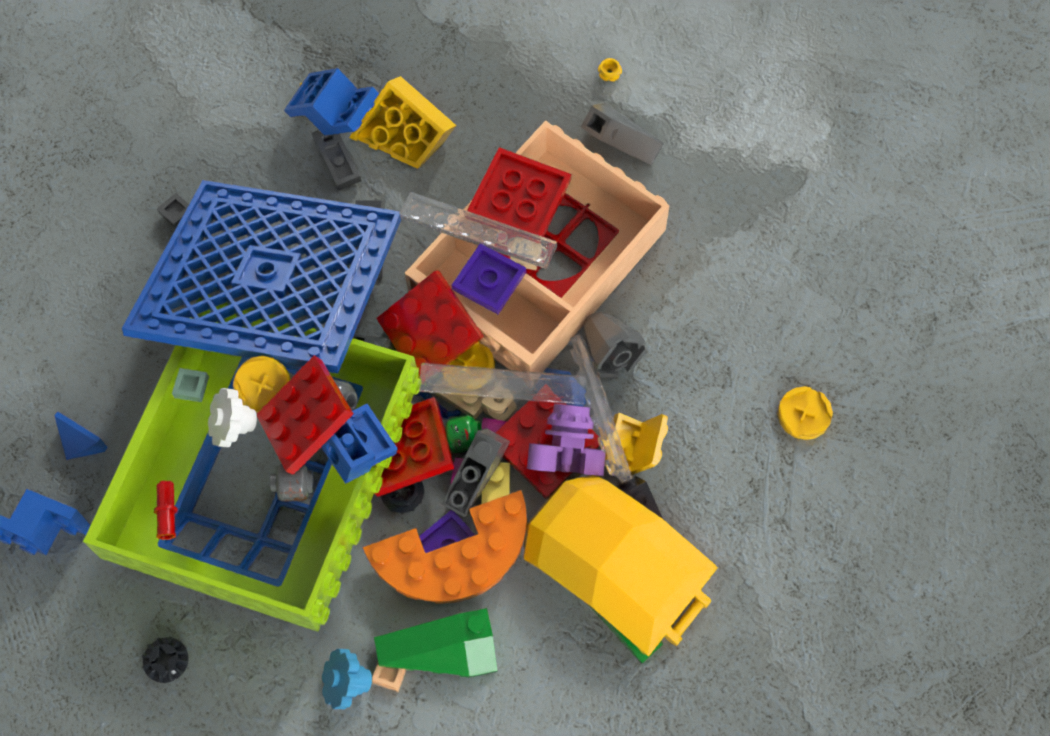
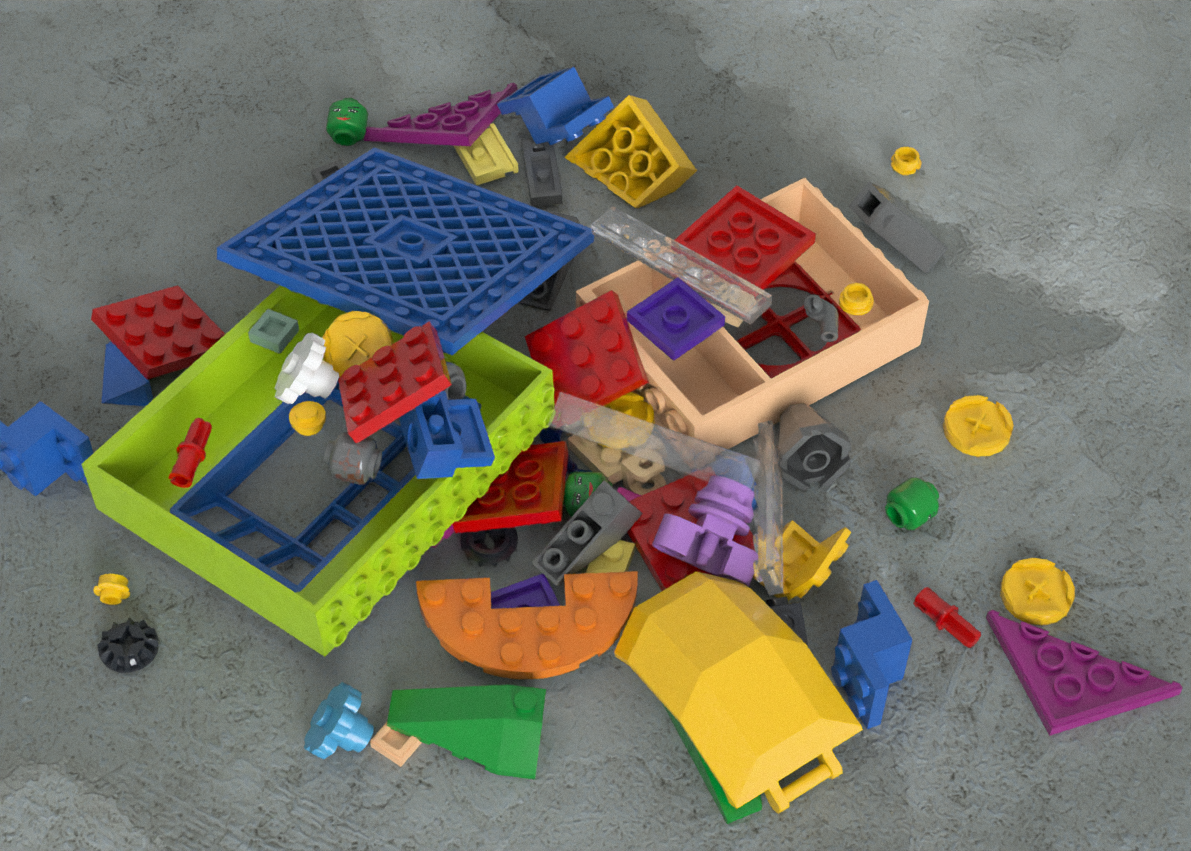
camera: 15 degrees right, 15 degrees down
(93, 389) = (158, 330): none -> red plate
(136, 618) = (112, 589): none -> yellow plate
(169, 155) = (347, 121): none -> green head
(243, 453) = (307, 418): none -> yellow plate
(248, 134) = (445, 124): none -> magenta tile
(287, 154) = (488, 157): none -> light yellow plate
(598, 243) = (823, 314): none -> dark grey arm
(617, 222) = (856, 299): none -> yellow plate
(699, 370) = (912, 503): none -> green head
(707, 506) = (871, 655): none -> blue bracket
(726, 287) = (978, 426): none -> yellow tile
(749, 455) = (946, 617): none -> red axle
(846, 476) = (1071, 681): none -> magenta tile

